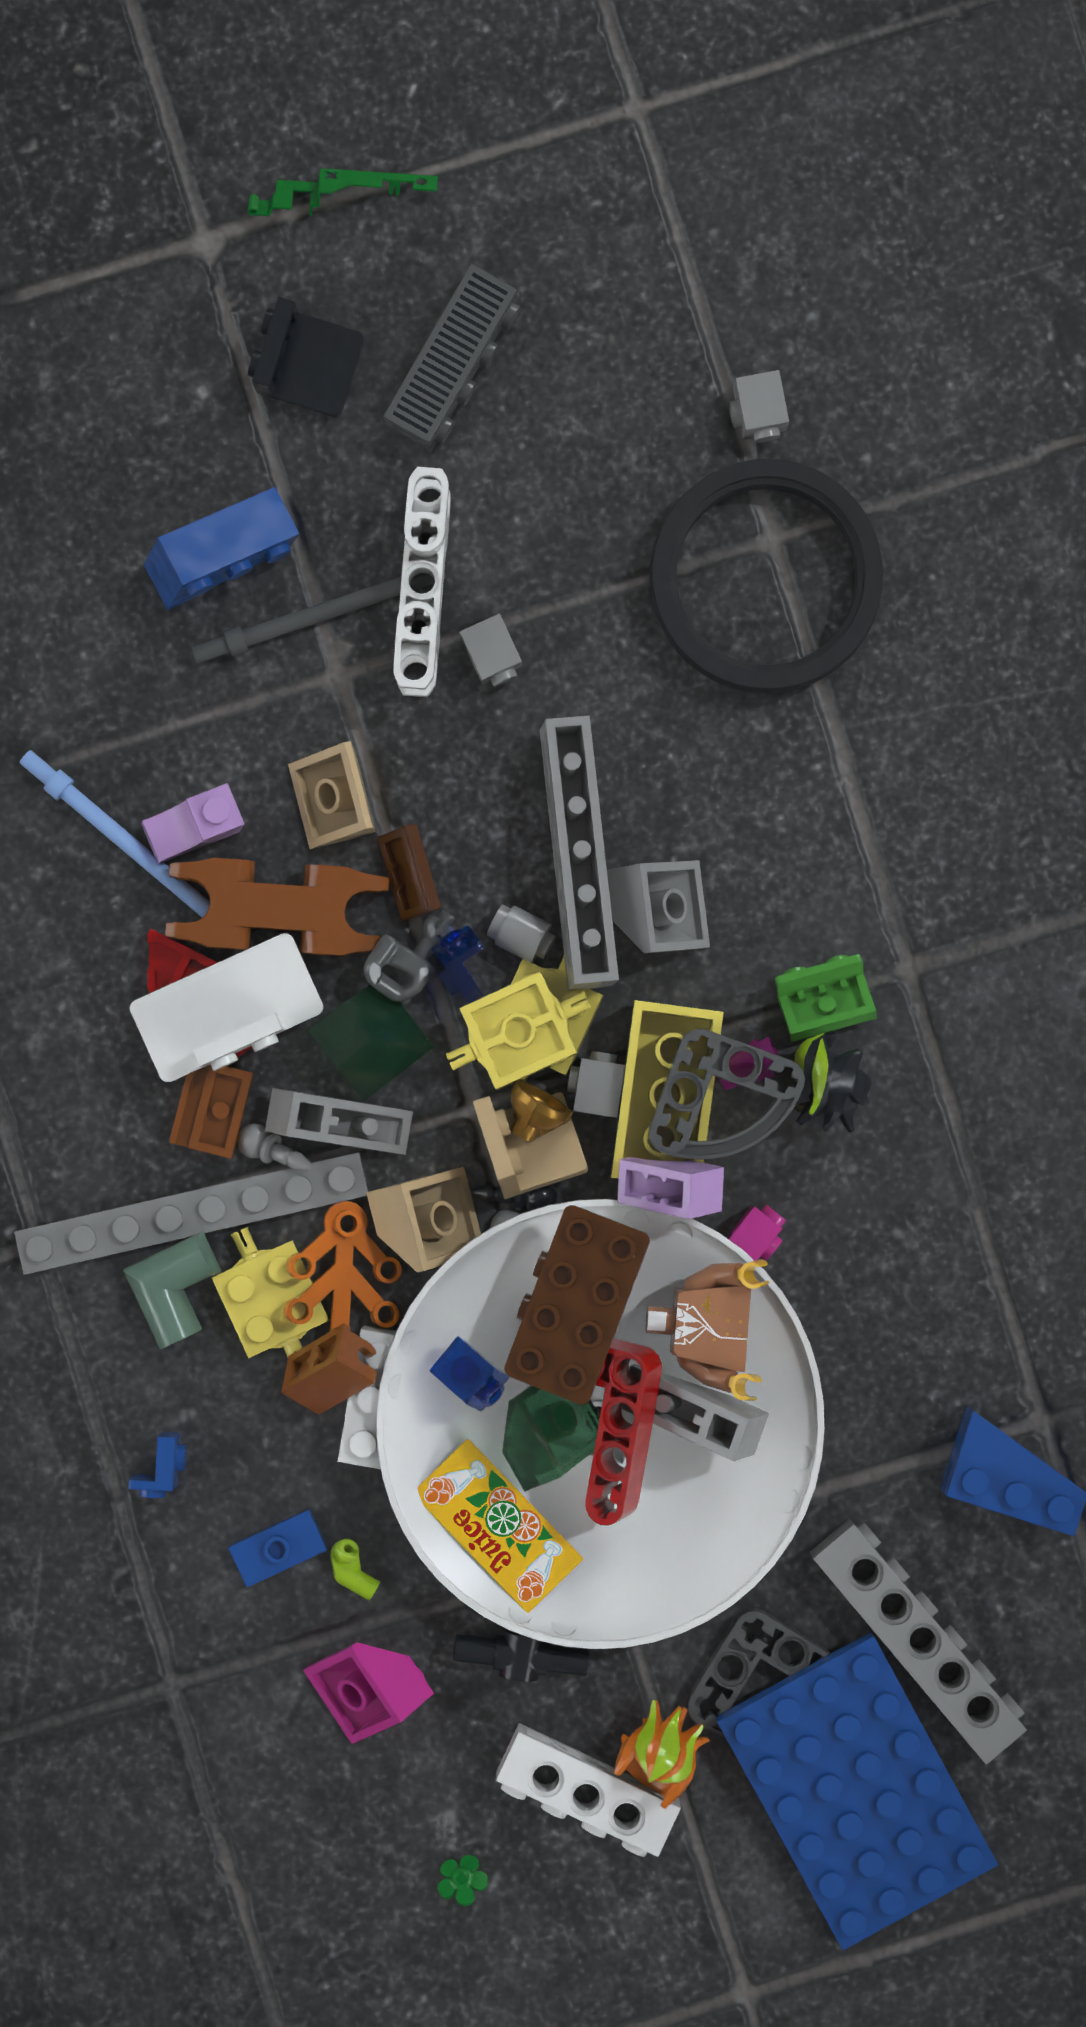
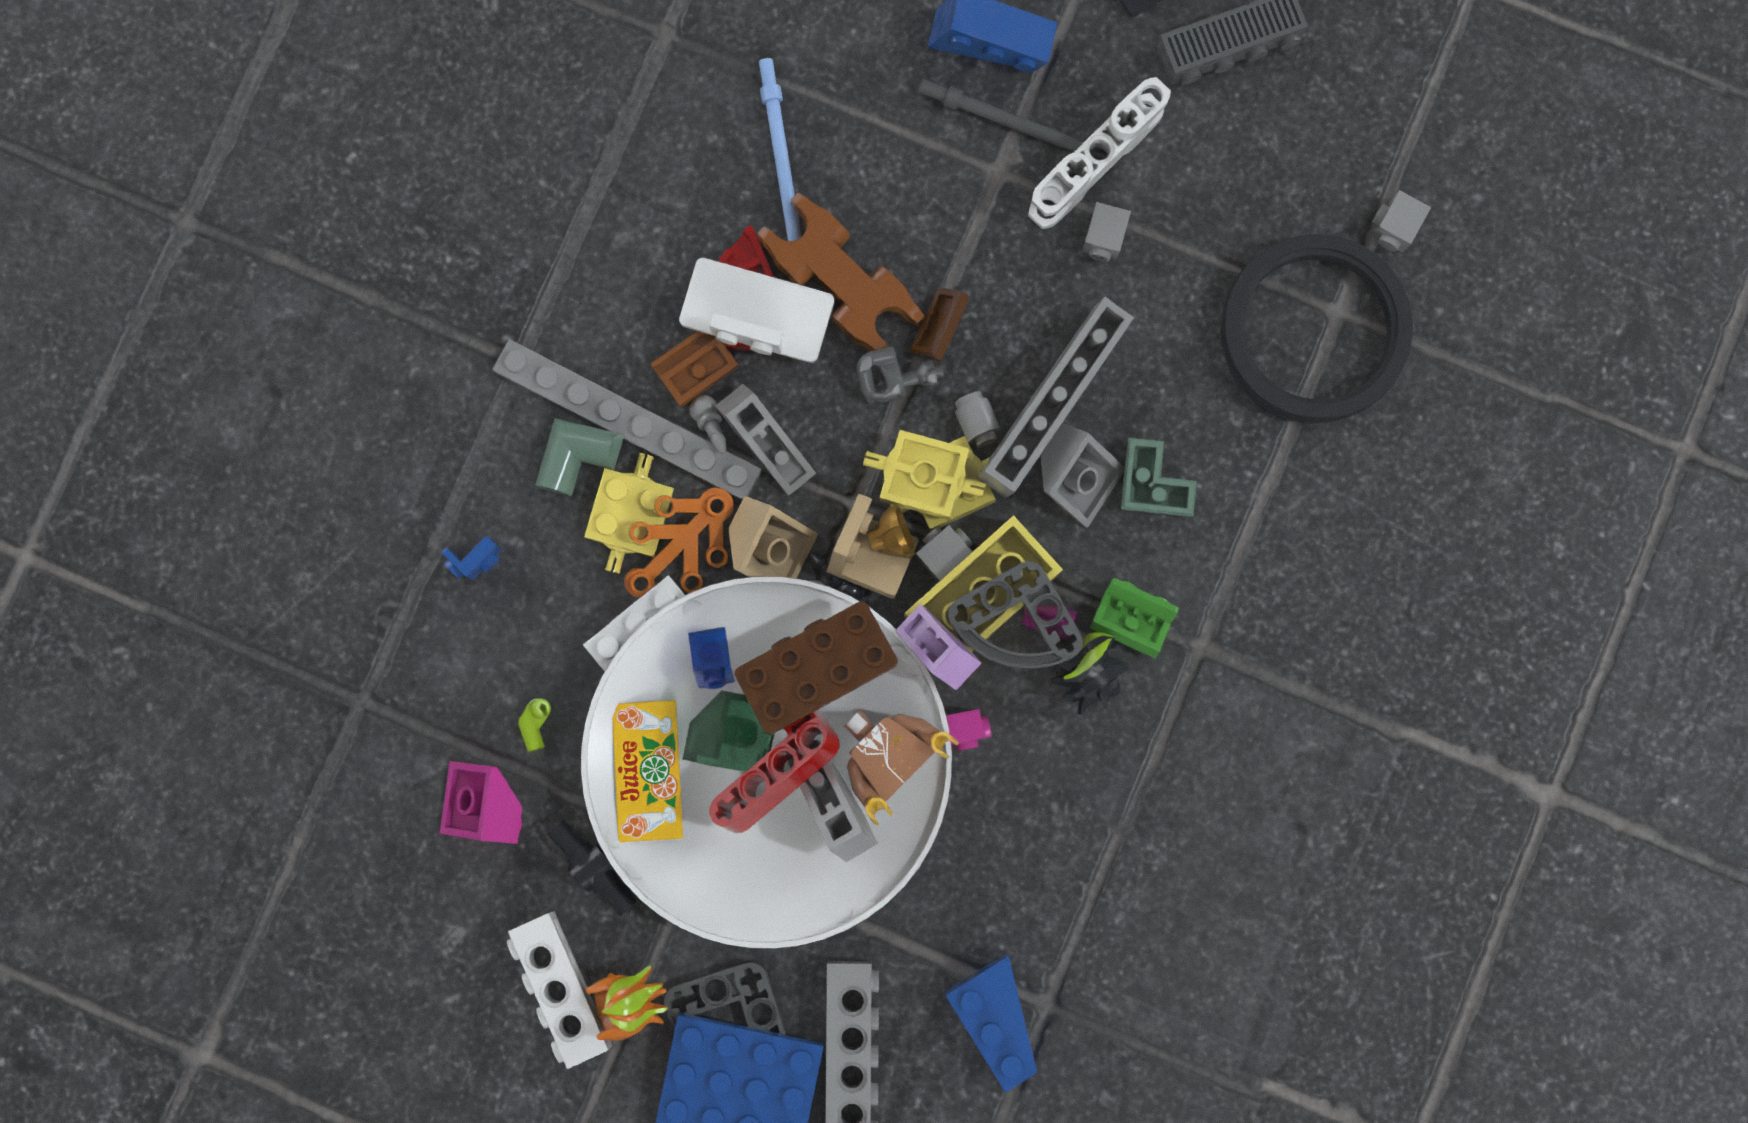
camera: 45 degrees right, 5 degrees down
(193, 824) = (833, 184): lavender arch -> none
(278, 1547) = (500, 671): blue plate -> none
(328, 1370) = (626, 583): dark orange hinge -> none
(331, 796) = (932, 239): tan slope -> none
(370, 1040) = (827, 406): clear green slope -> none
(451, 953) = (925, 391): clear blue bracket -> none
(462, 1880) = (432, 978): green plant -> none
(733, 865) = (1146, 489): none -> sand green brick

